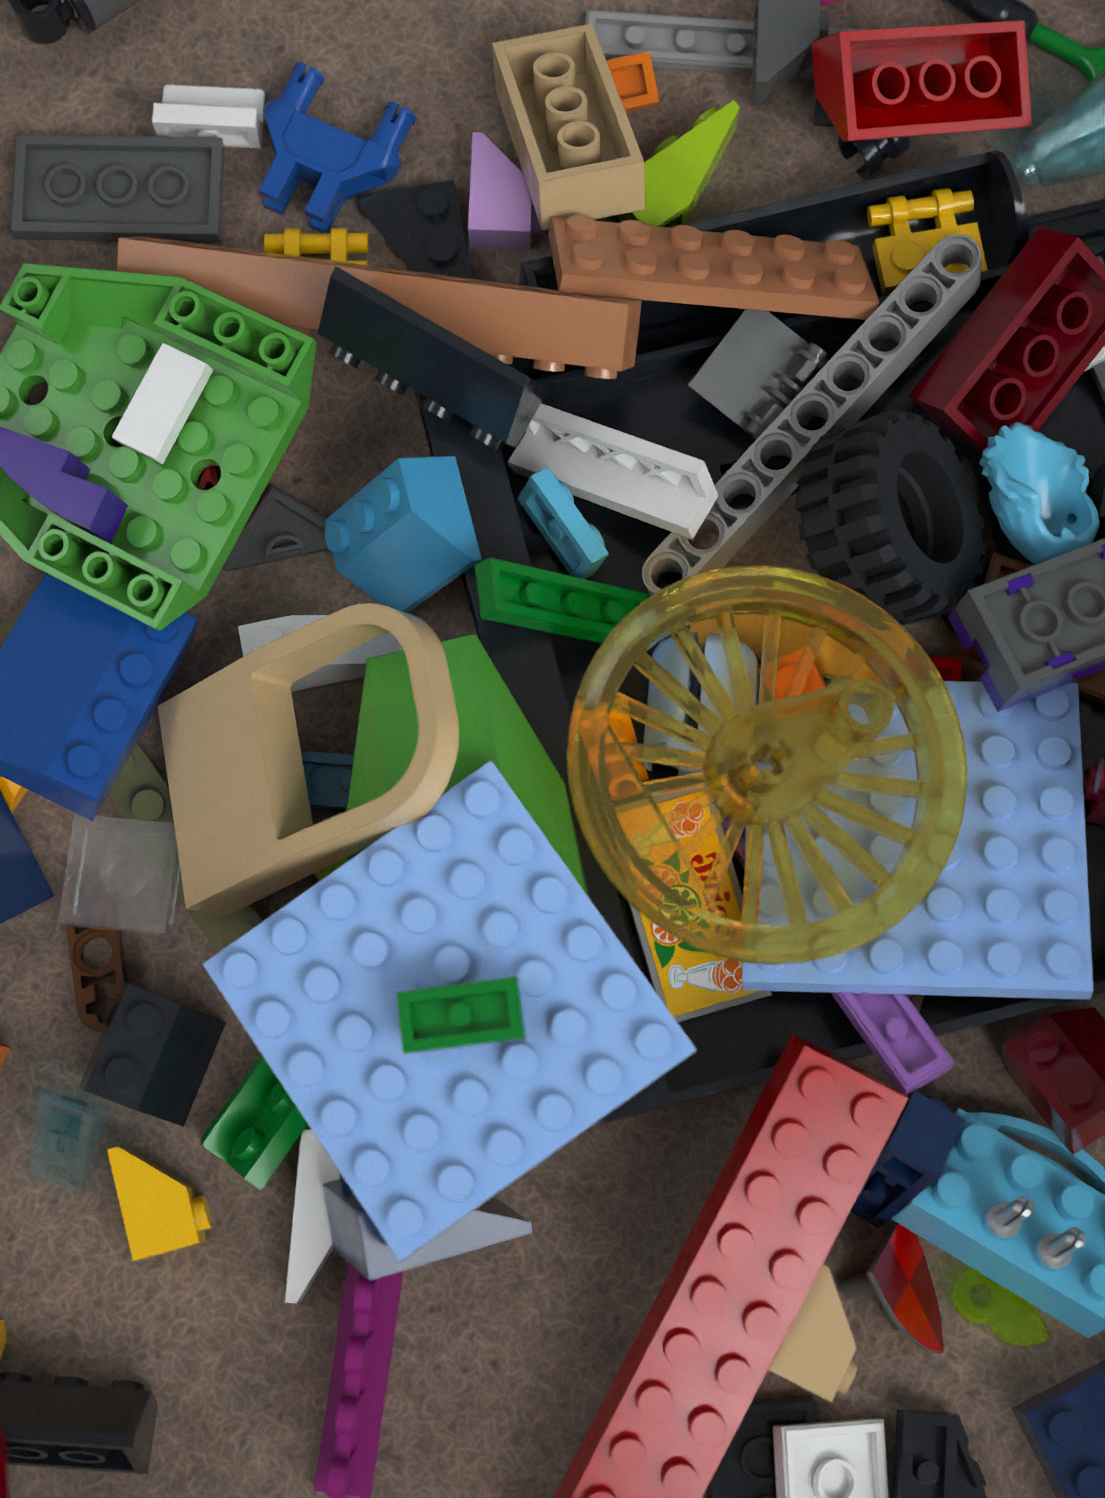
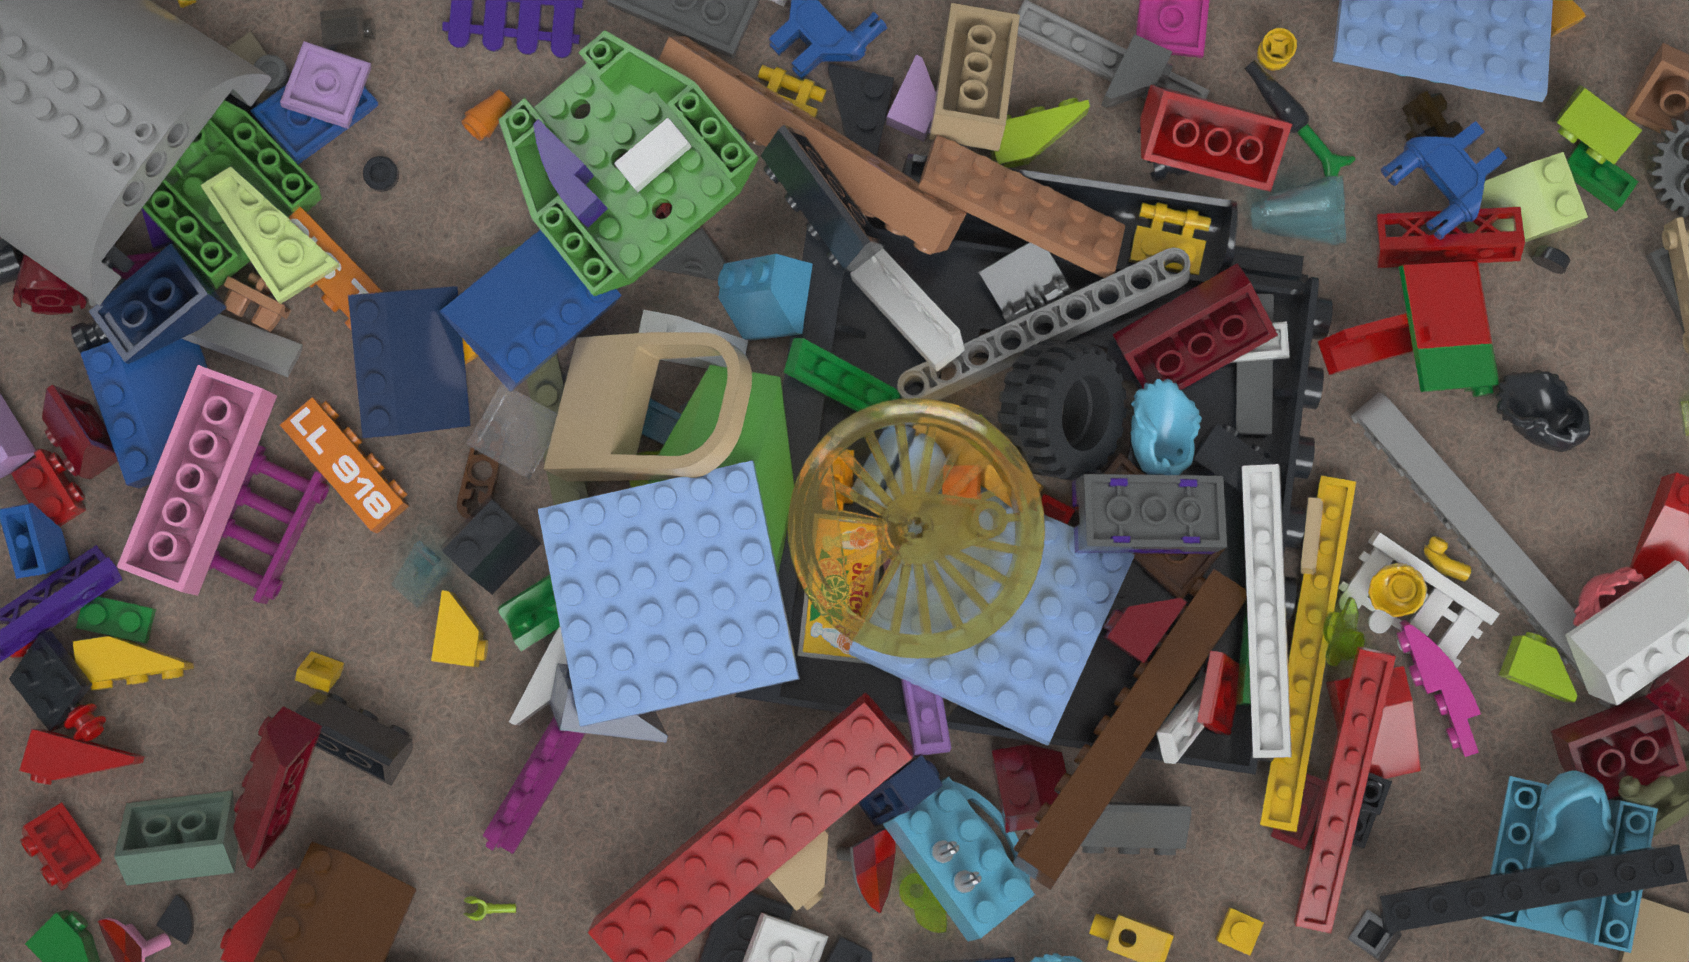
camera: 25 degrees right, 5 degrees up
(461, 1015) = (671, 602): green plate -> none
(562, 524) = (863, 316): medium azure plate -> none
(635, 81) = (1031, 59): orange plate -> none

